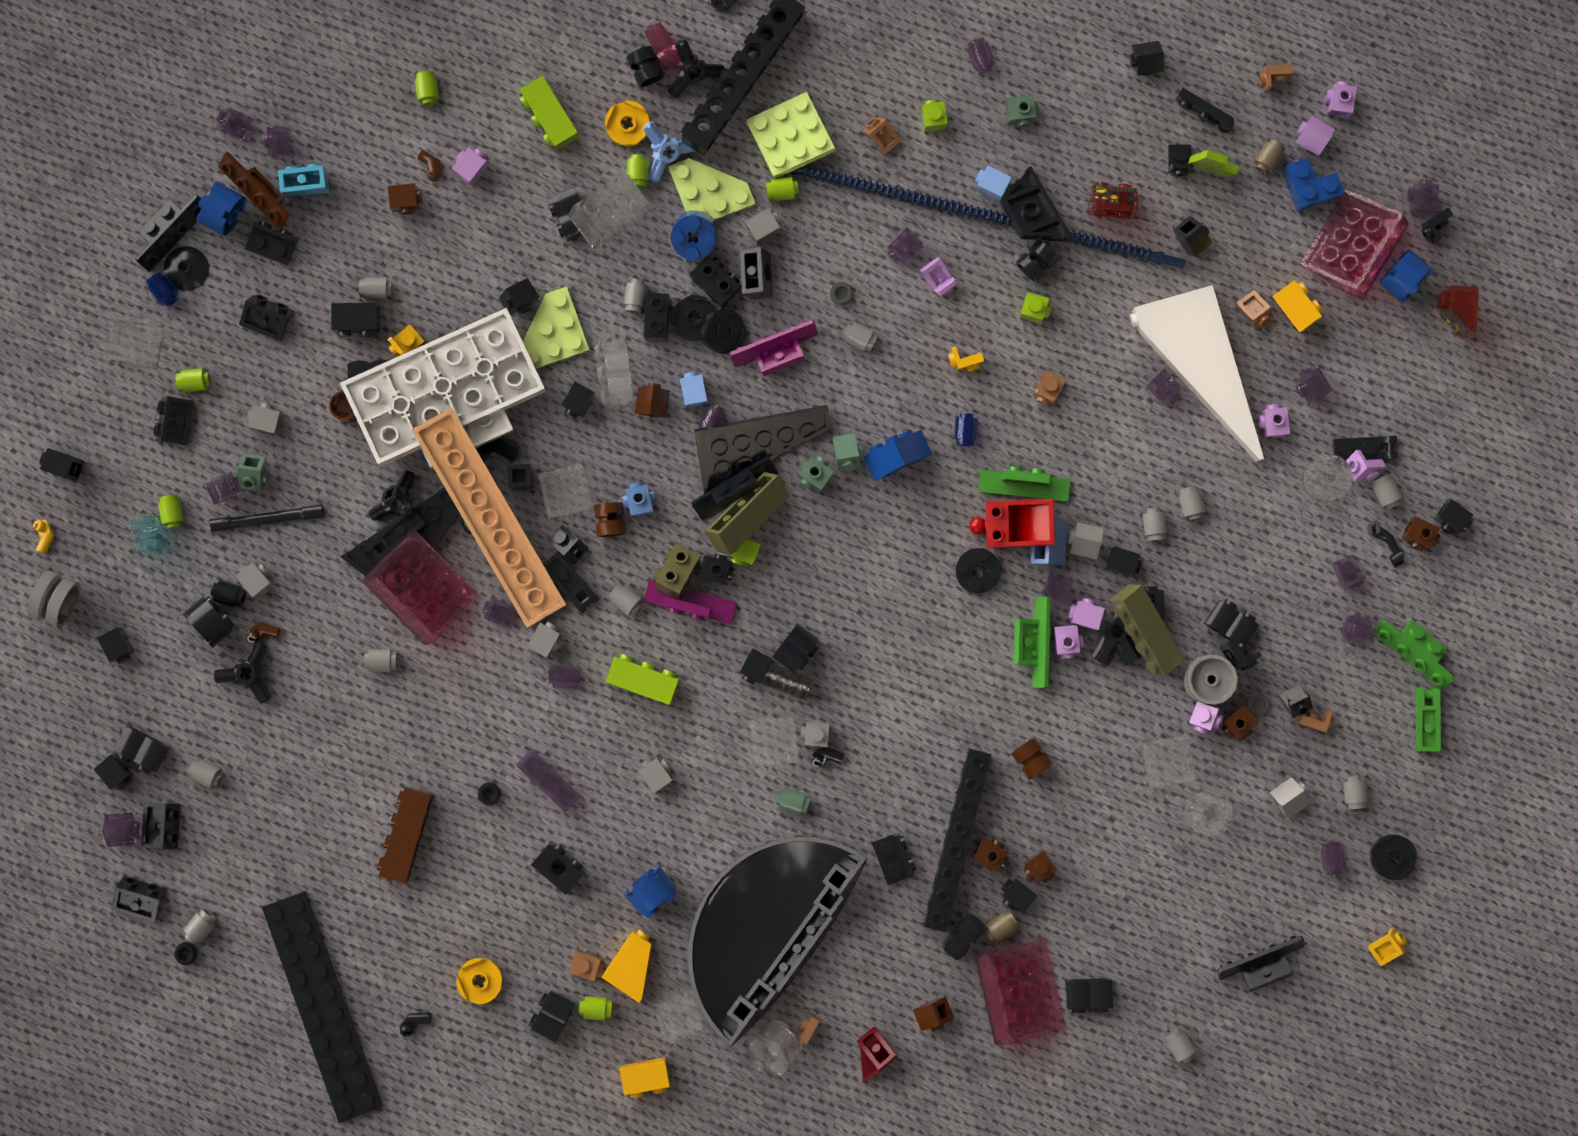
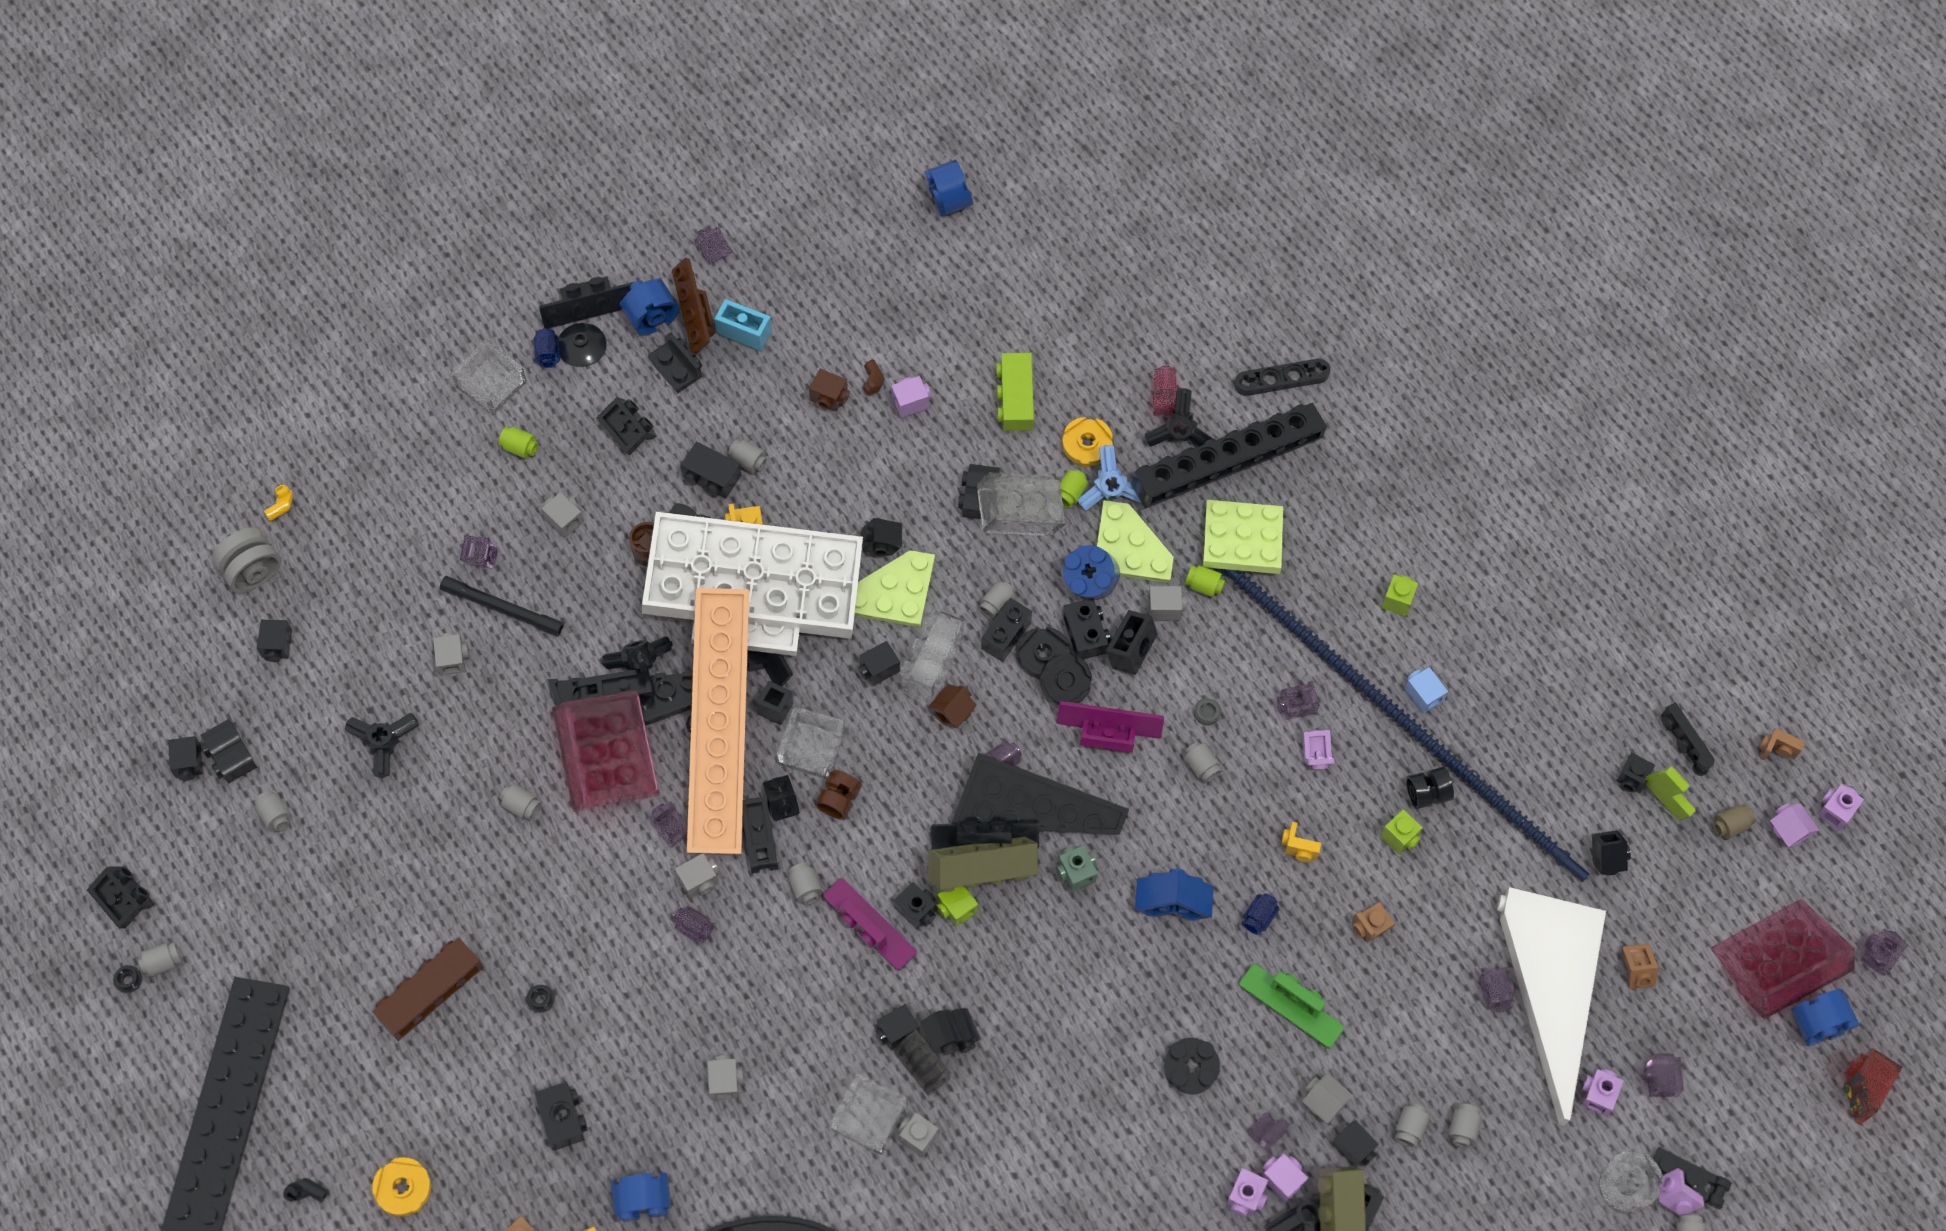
camera: 25 degrees right, 20 degrees down
(61, 464) = (342, 445): black brick -> none
(120, 829) = (151, 815): clear purple brick -> none
(147, 534) = (378, 553): clear light blue wheel -> none
(160, 825) = (194, 837): black bracket -> none
(170, 511) = (414, 547): lime brick -> none
(174, 420) = (476, 468): black bracket -> none
(208, 621) = (379, 665): black brick -> none
(228, 593) = (415, 653): black brick -> none
(252, 472) = (516, 553): sand green brick -> none
(261, 630) = (423, 707): reddish brown arm -> none
(277, 140) = (742, 278): clear purple brick -> none
(426, 88) = (913, 309): lime brick -> none
(548, 780) = (609, 1020): clear purple plate -> none
(639, 508) = (880, 792): medium blue brick -> none
(643, 679) = (772, 973): lime brick -> none
(645, 67) = (1136, 398): black wheel -> none
(676, 571) = (875, 882): olive brick -> none
(693, 390) = (1000, 719): light blue brick -> none
(793, 801) = (850, 1192): sand green brick -> none
(824, 755) = (916, 1165): black arm -> none
(847, 452) = (1122, 865): sand green brick -> none
(882, 134) = (1337, 585): medium nougat bracket -> none
(980, 55) = (1479, 565): clear purple brick -> none
(1020, 523) = (1265, 1036): red slope -> none
(1021, 110) = (1493, 637): sand green brick -> none
(1033, 211) = (1452, 737): black wing -> none
(1033, 642) = (1208, 1174): bright green bracket -> none
(1052, 554) = (1285, 1076): medium blue brick -> none
(1113, 201) = (1541, 774): clear red slope -> none
(1147, 58) = (1652, 657): black brick -> none
(1298, 306) = (1689, 986): yellow brick -> none
(1307, 190) = (1759, 875): blue brick -> none
(1438, 221) = (1884, 984): black bracket -> none

